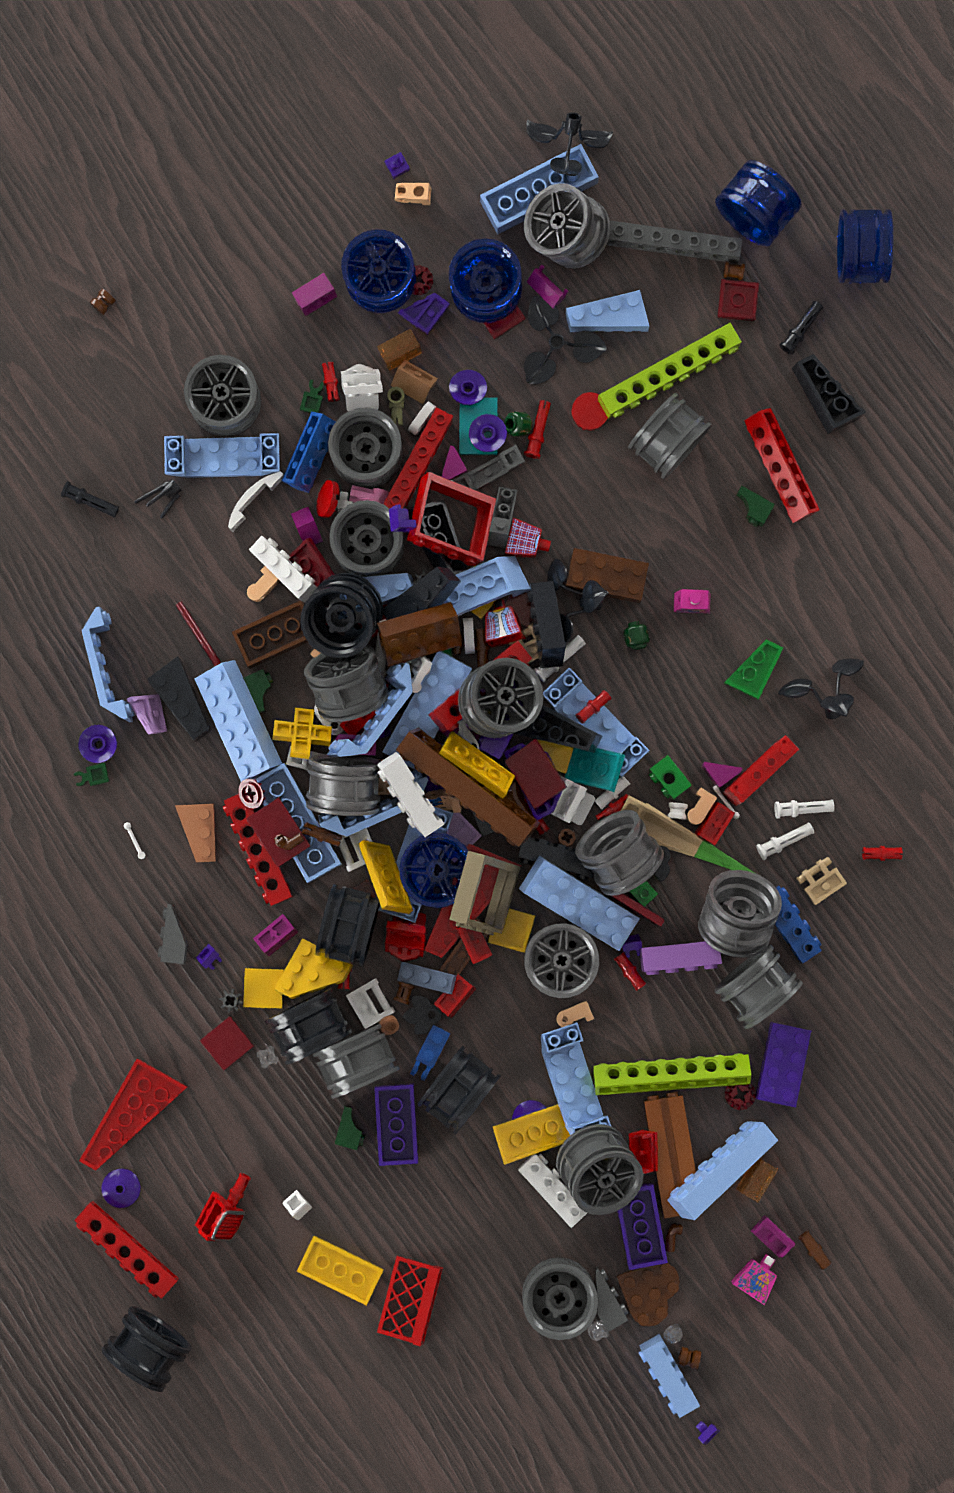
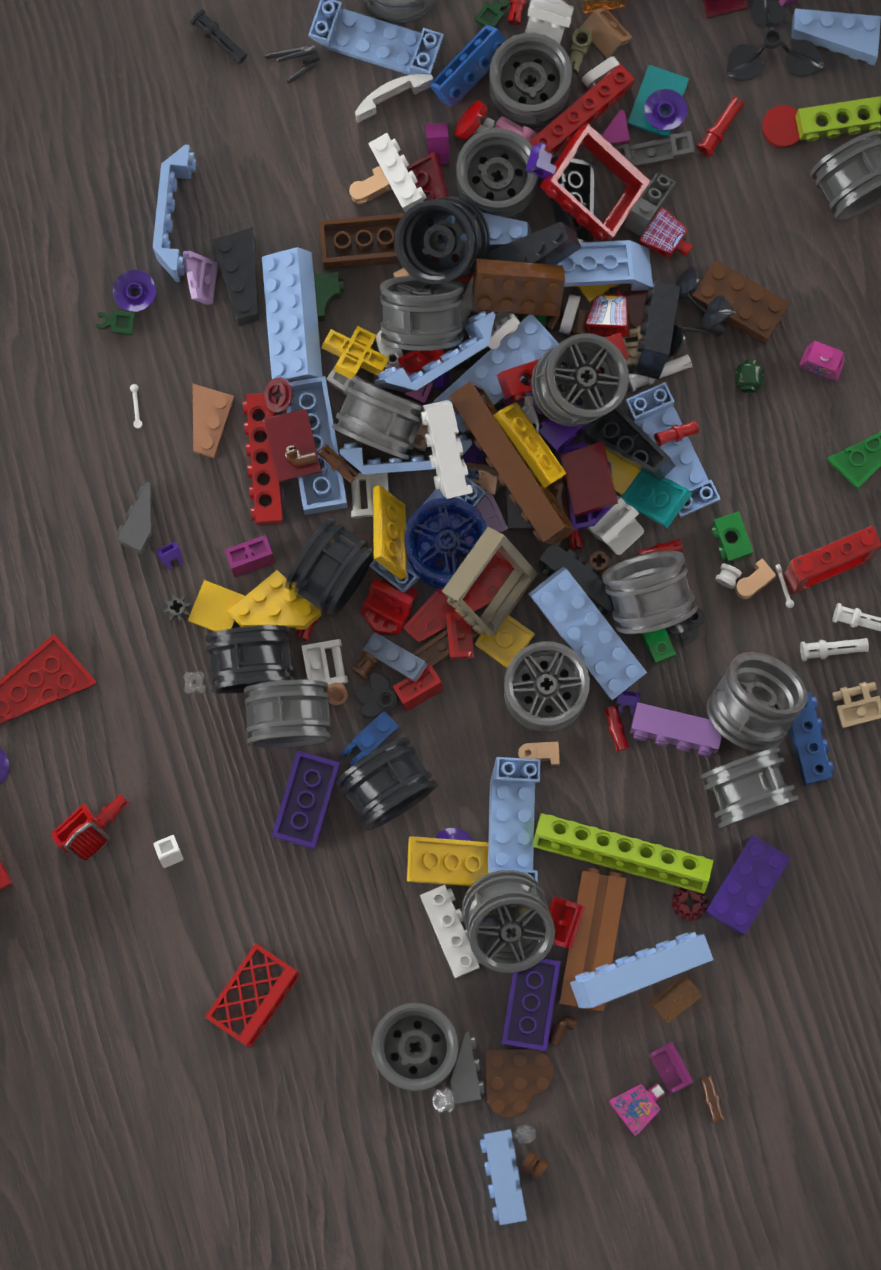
camera: 20 degrees right, 5 degrees down
(198, 634) = (282, 212): dark red bar -> none
(226, 1043) = (156, 652): dark red tile -> none
(340, 1270) = (189, 937): yellow tile -> none
(348, 1133) = (250, 792): dark green arch -> none
(468, 380) = (661, 49): dark purple dish -> none
(518, 424) = (701, 112): dark green head -> none
(608, 796) = (664, 533): white pin -> none
(641, 910) = (648, 661): dark red tile -> none
(678, 838) = (717, 603): tan plate -> none
(707, 1432) = (524, 1254): dark purple tile -> none
(714, 823) = (764, 602): red hinge -> none
(720, 773) = (787, 550): magenta slope -> none

